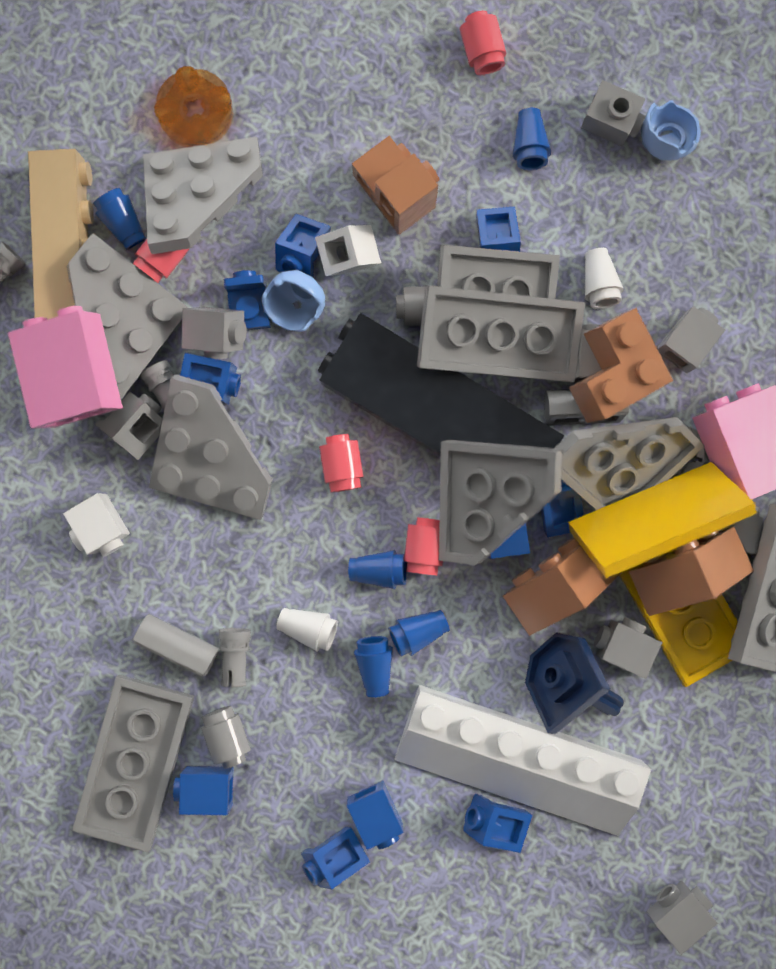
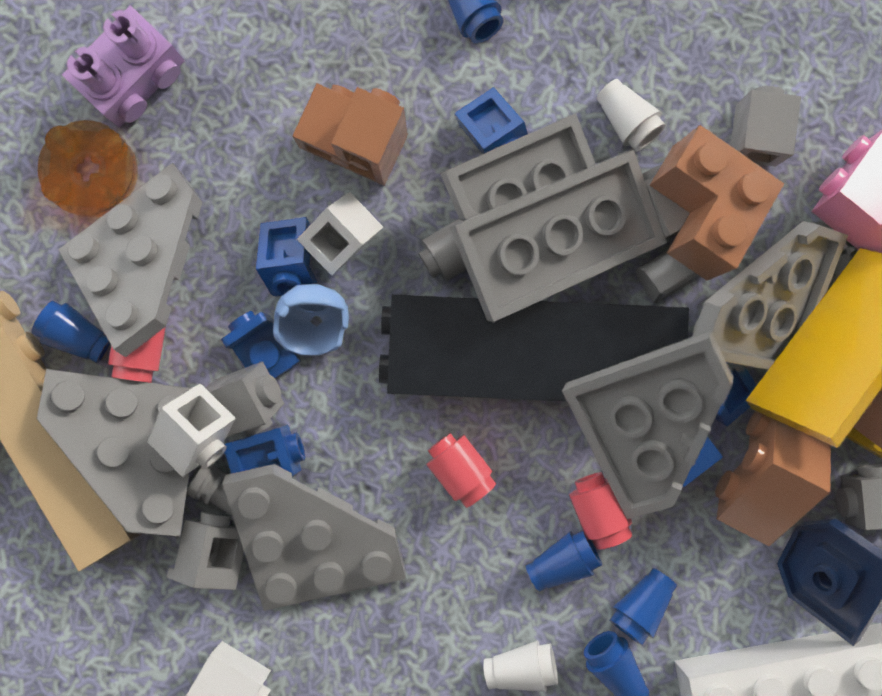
camera: 30 degrees left, 0 degrees up
(64, 368) = (95, 541): bright pink brick -> none
(170, 329) = (191, 430): none -> white brick
(260, 51) = (124, 67): none -> lavender brick

